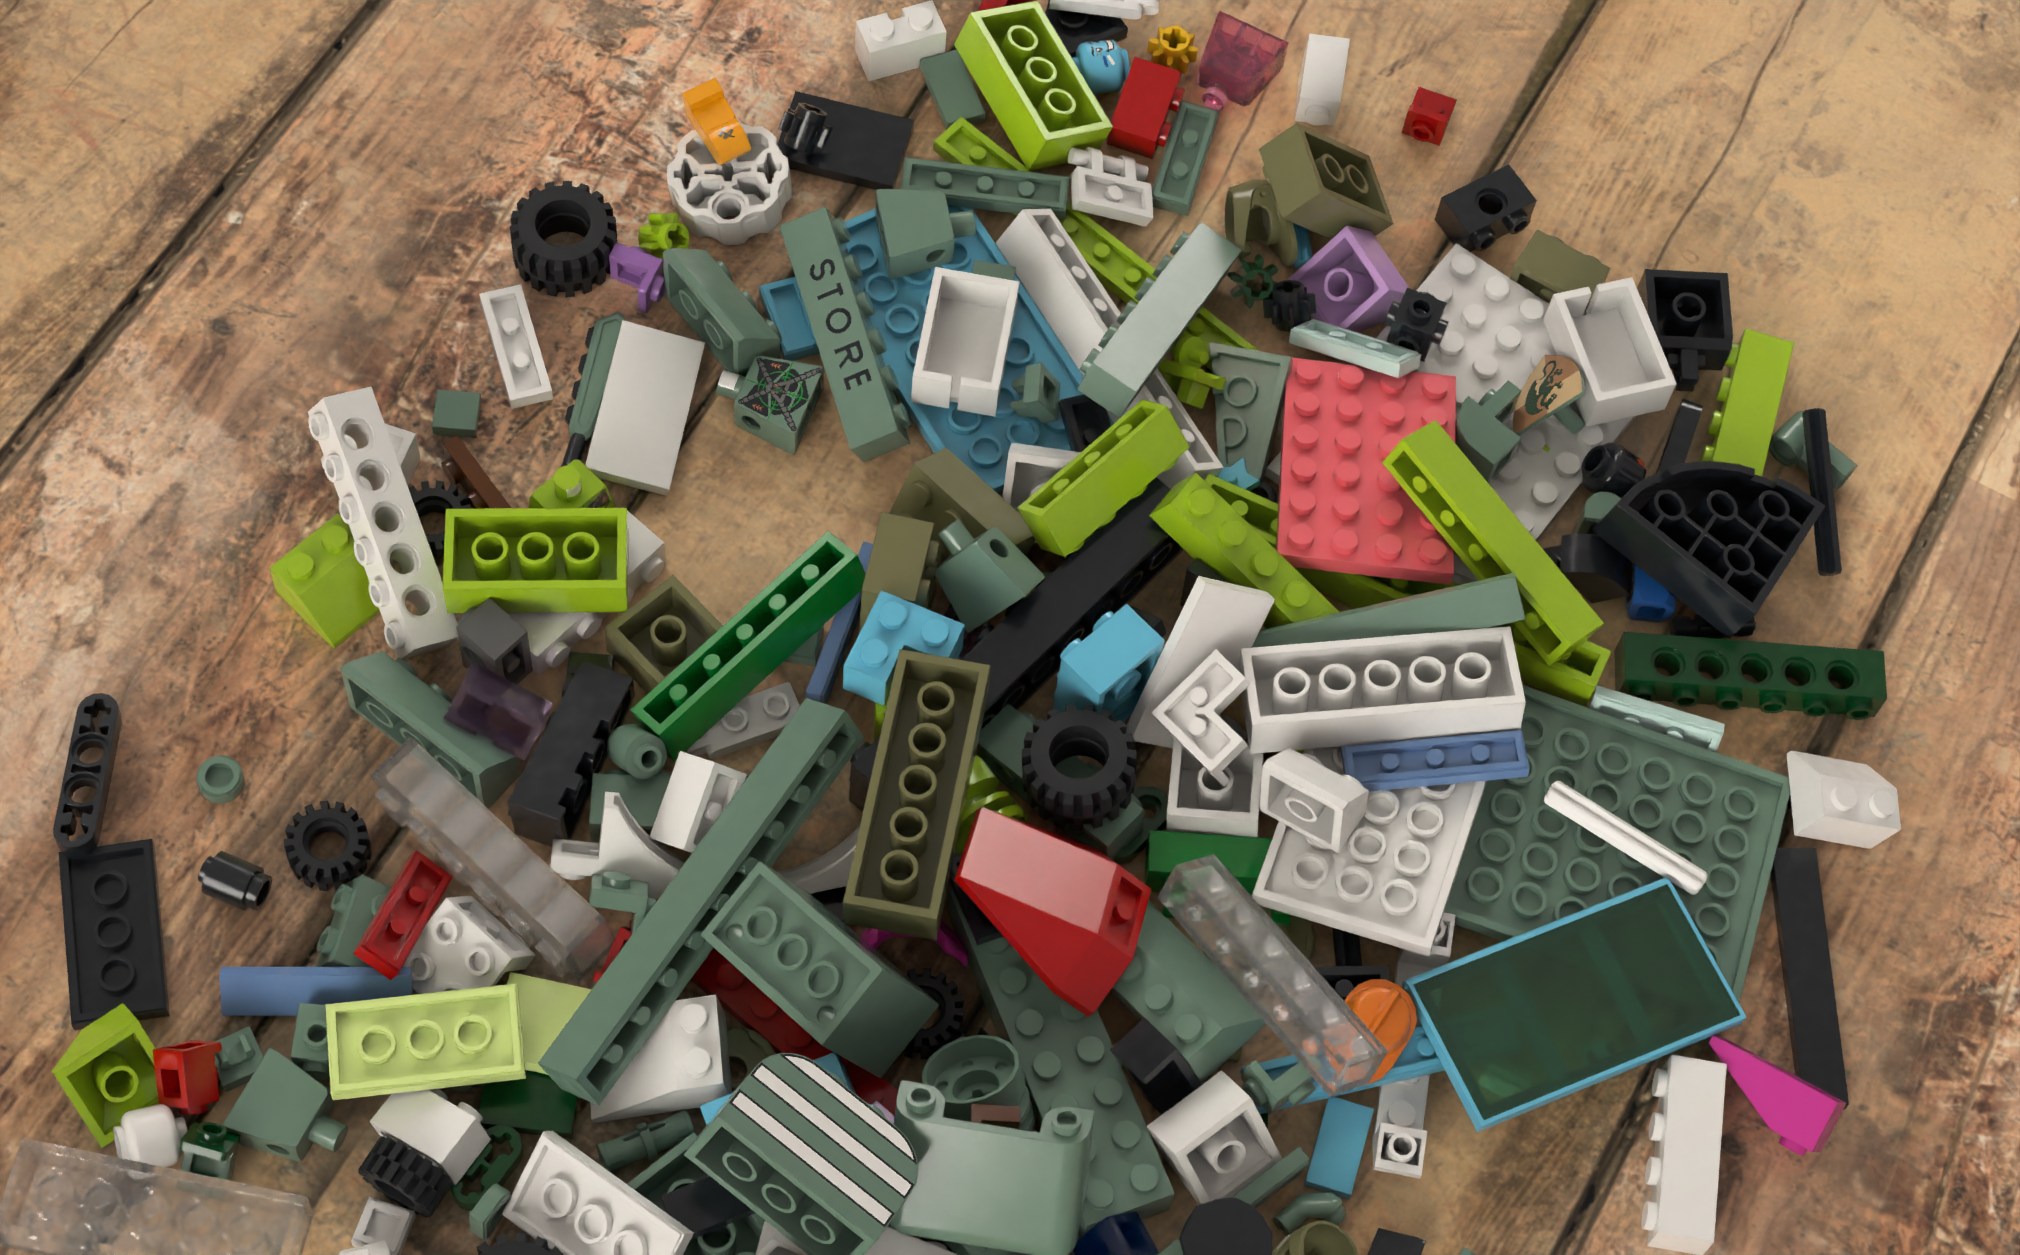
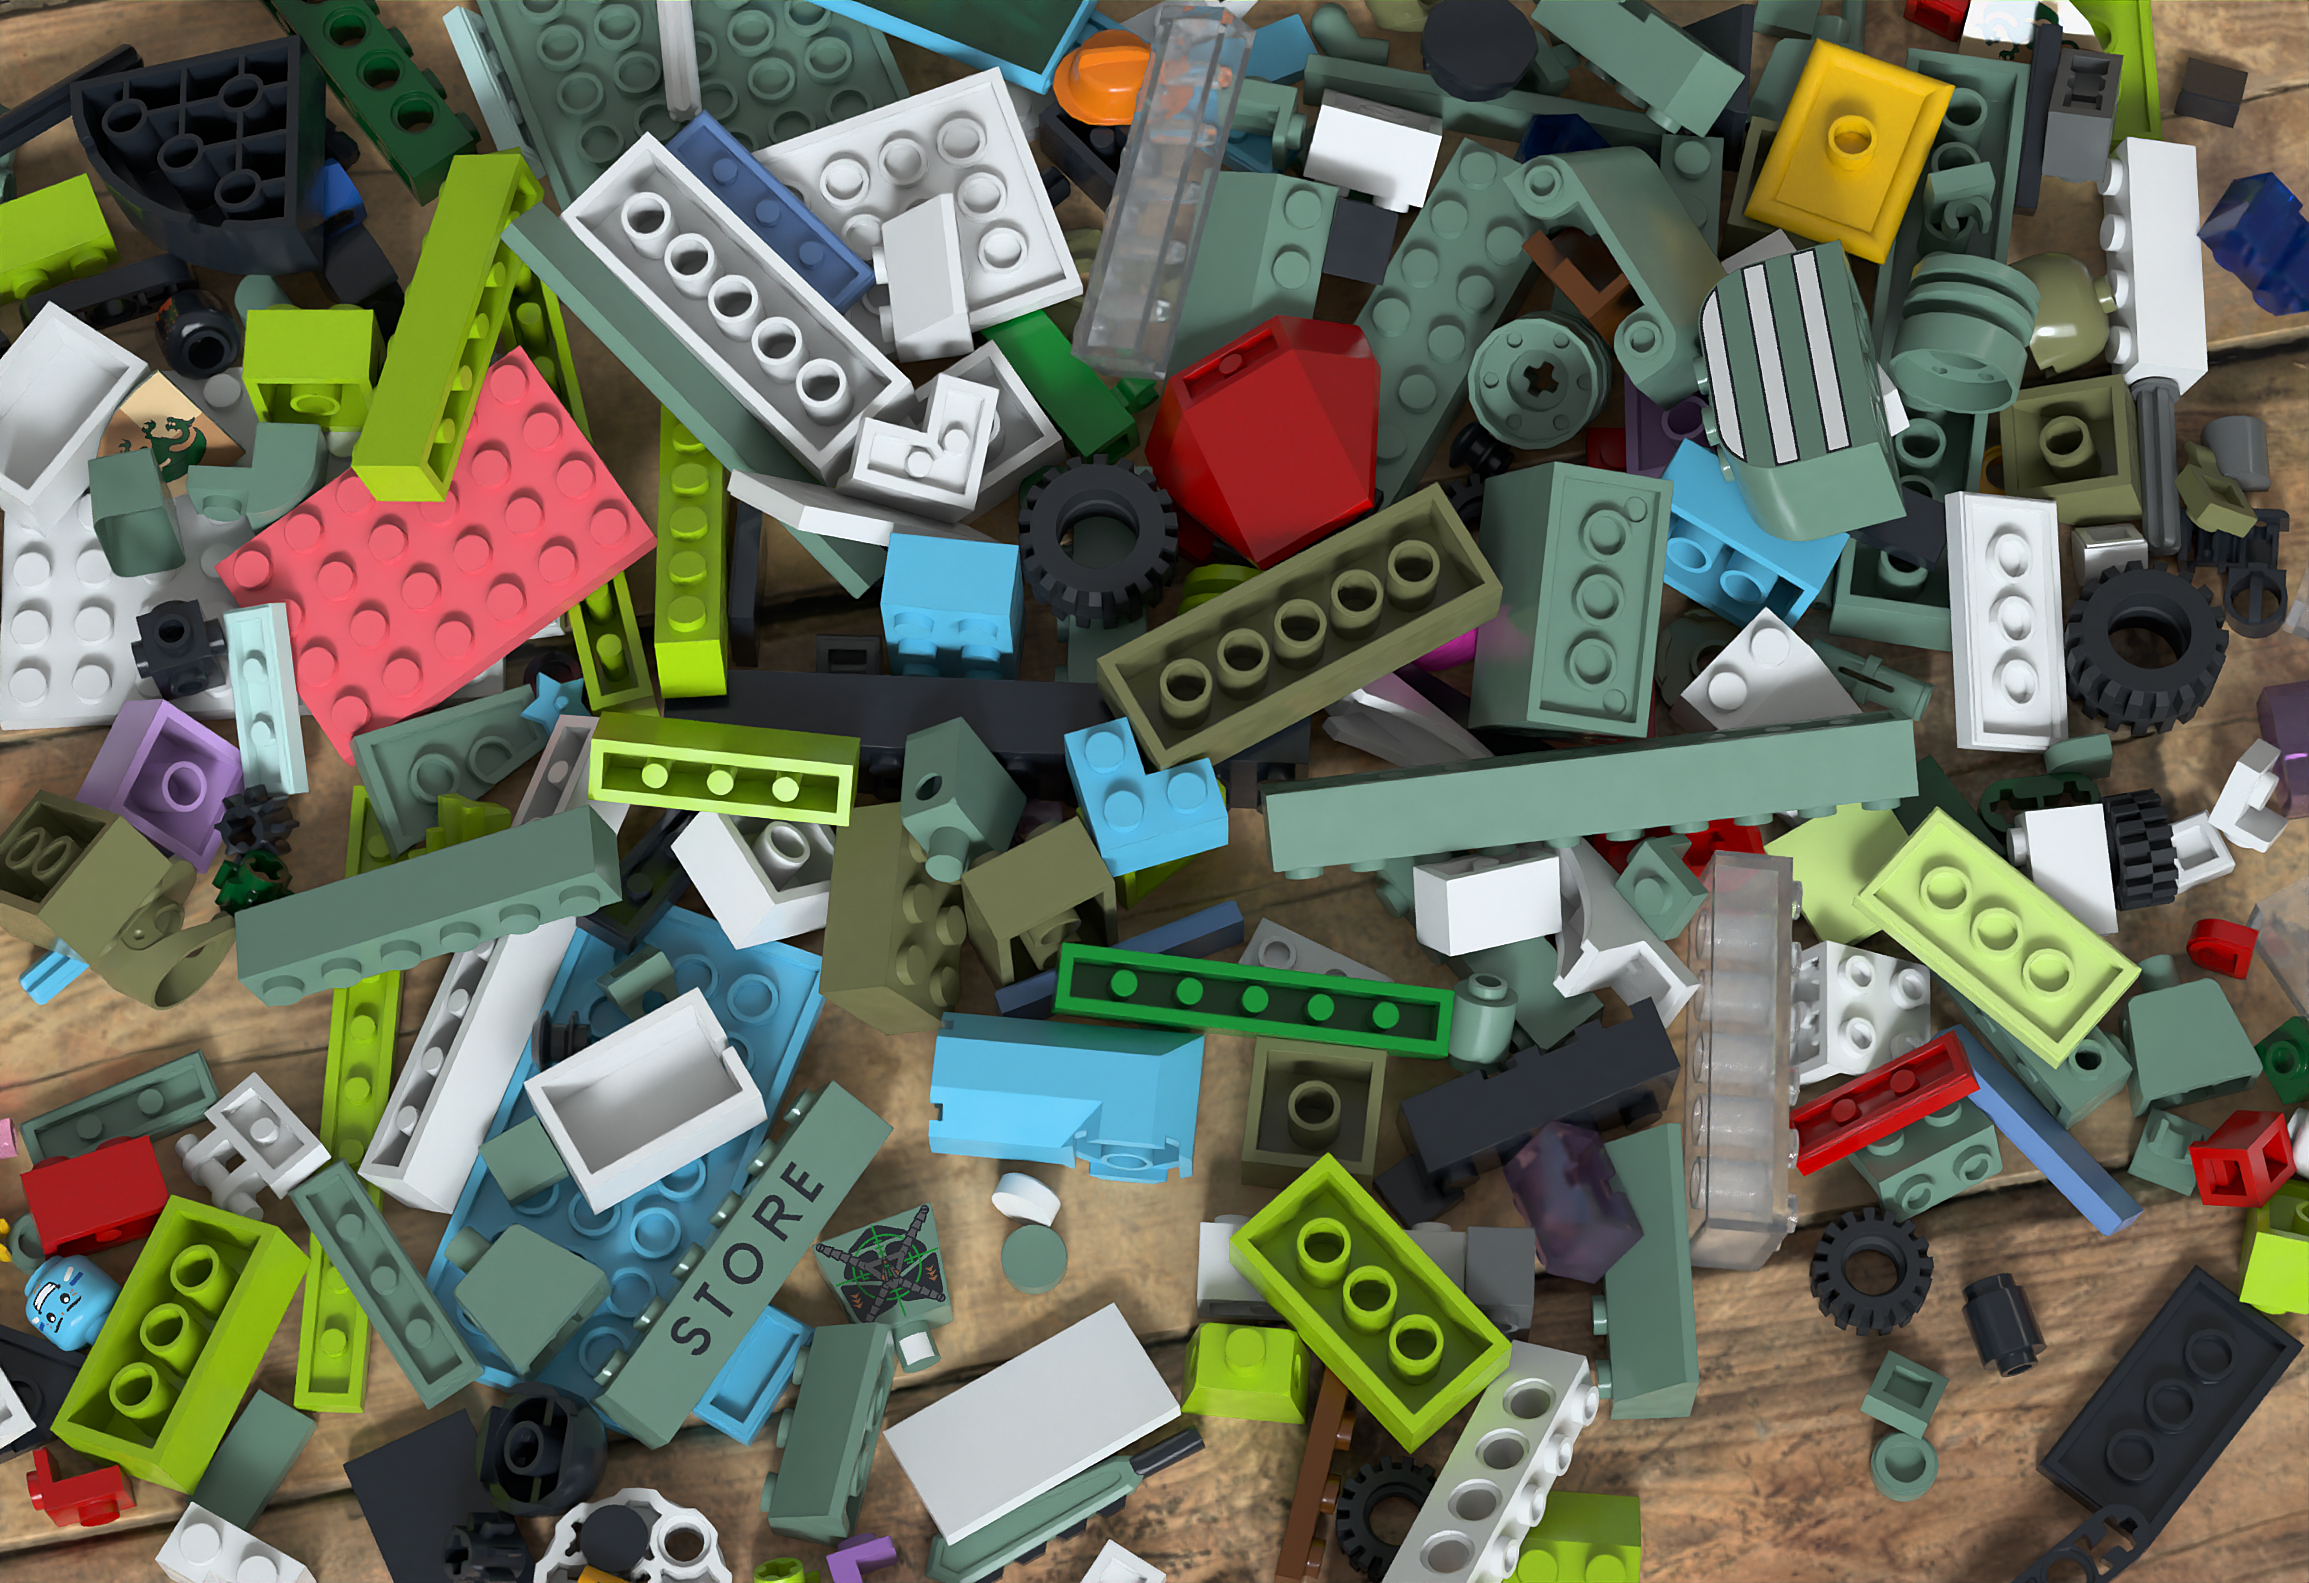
camera: 120 degrees left, 5 degrees up
(251, 805) = (1904, 1394): none -> sand green tile
(314, 1182) = (2222, 946): none -> red tile
(728, 476) = (1034, 1259): none -> sand green tile
(754, 171) = (614, 1540): none -> black tile
(759, 490) = (1026, 1200): none -> white tile
(762, 541) = (1066, 1094): none -> medium azure brick
(827, 183) = (541, 1451): none -> black cylinder
(1033, 340) = (557, 1041): none -> black wheel
(1513, 347) = (141, 540): none -> sand green piece
(1538, 477) = (313, 365): none -> lime brick

